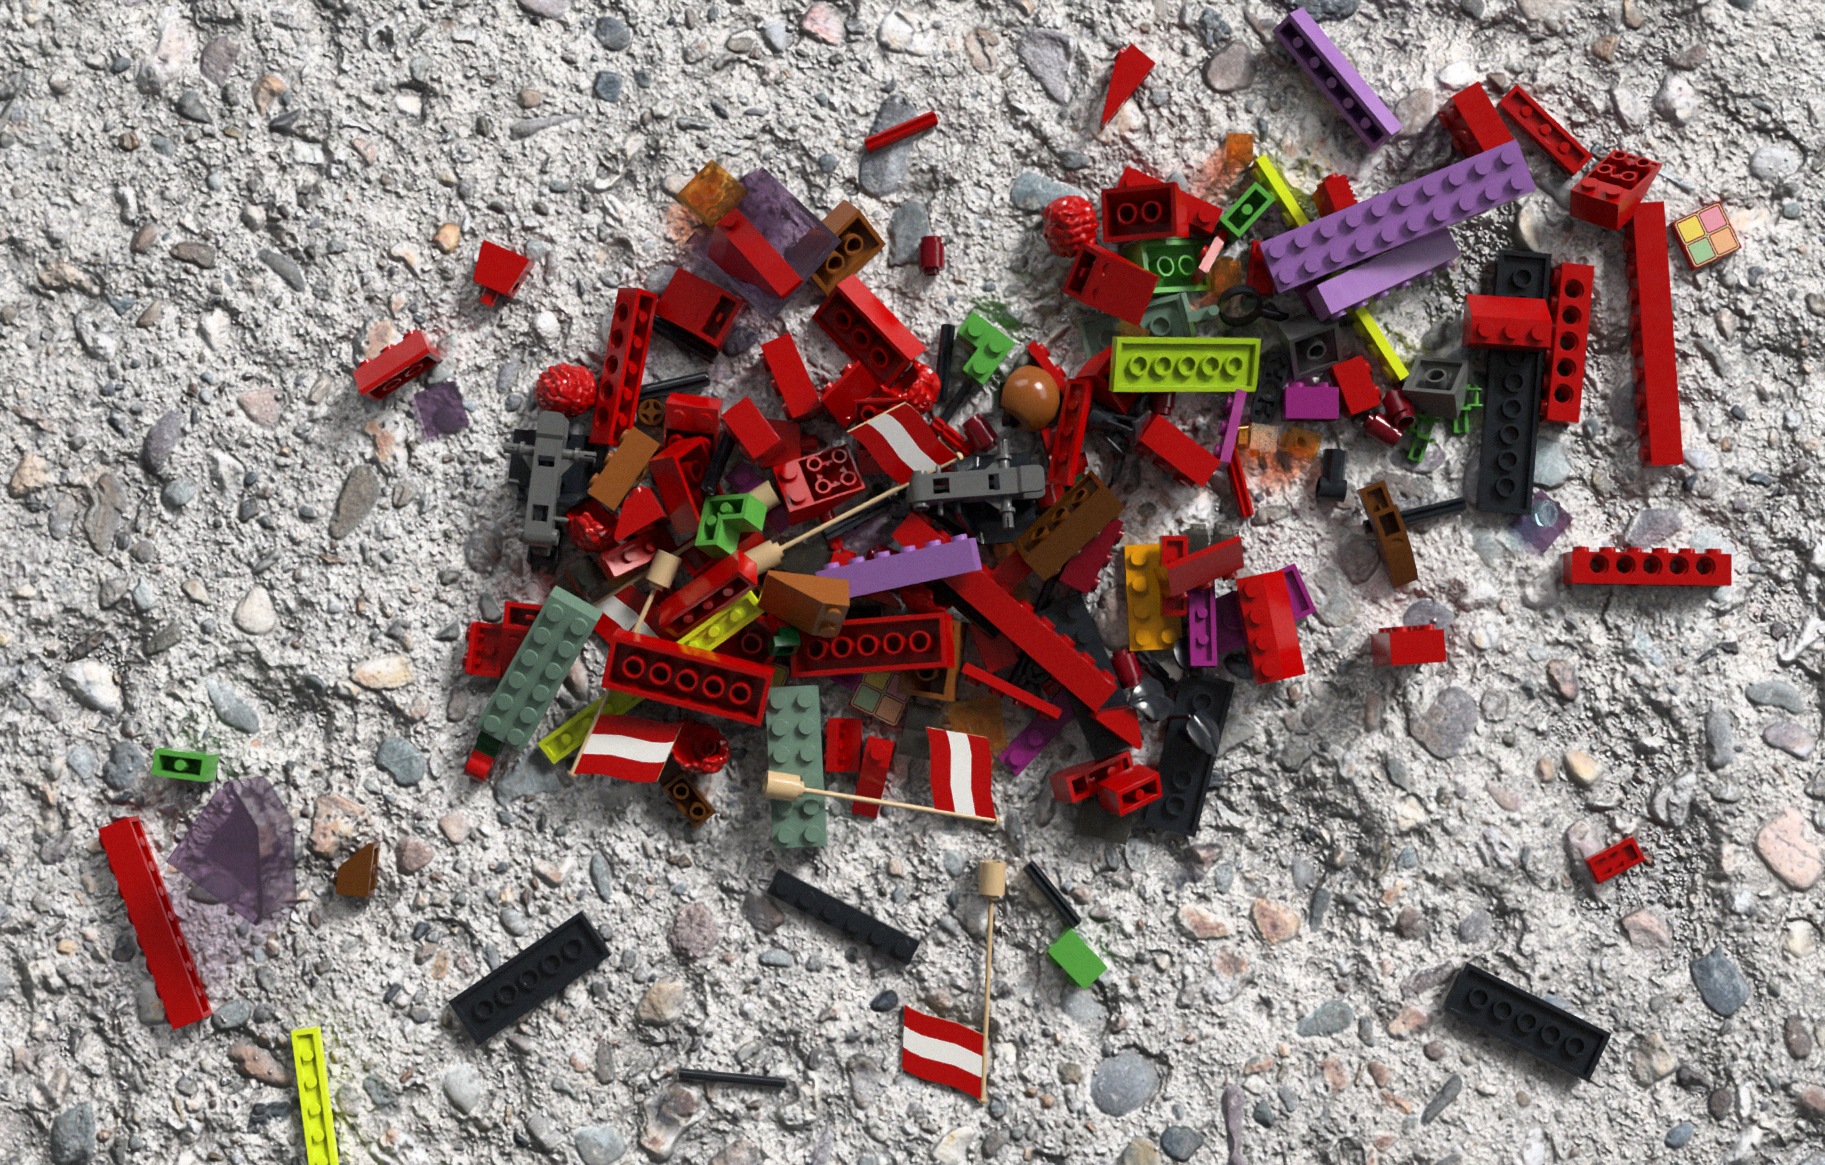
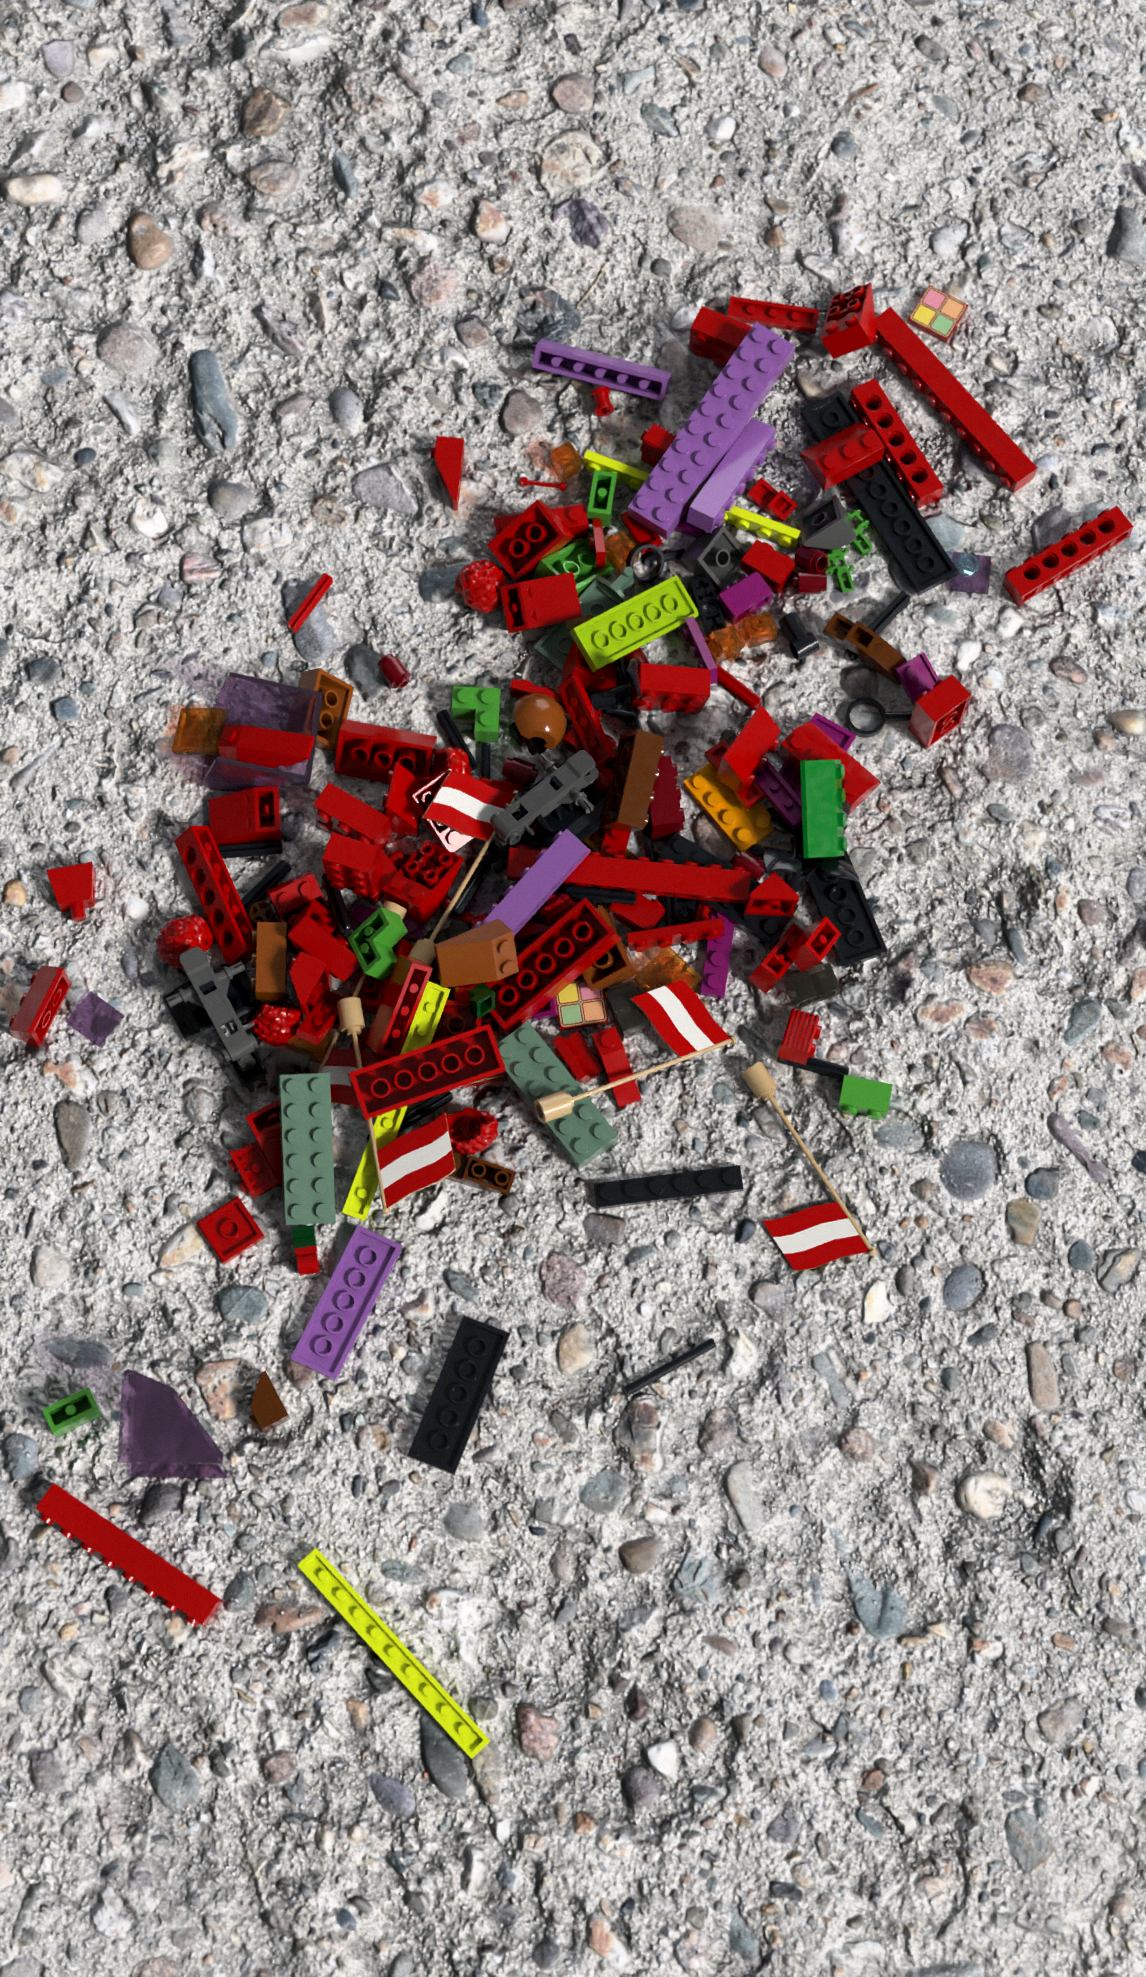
camera: 35 degrees left, 15 degrees down
(432, 689) = (230, 1230): none -> red tile
(488, 827) = (346, 1303): none -> medium lavender plate
(1055, 864) = (798, 1037): none -> red brick
(1185, 144) = (525, 482): none -> red hinge
(1228, 672) = (823, 808): none -> green slope
(1315, 111) = (602, 401): none -> red bush
(1357, 609) = (885, 716): none -> black piece
(1405, 321) = (771, 501): none -> red slope
(1414, 598) = (916, 676): none -> magenta plate

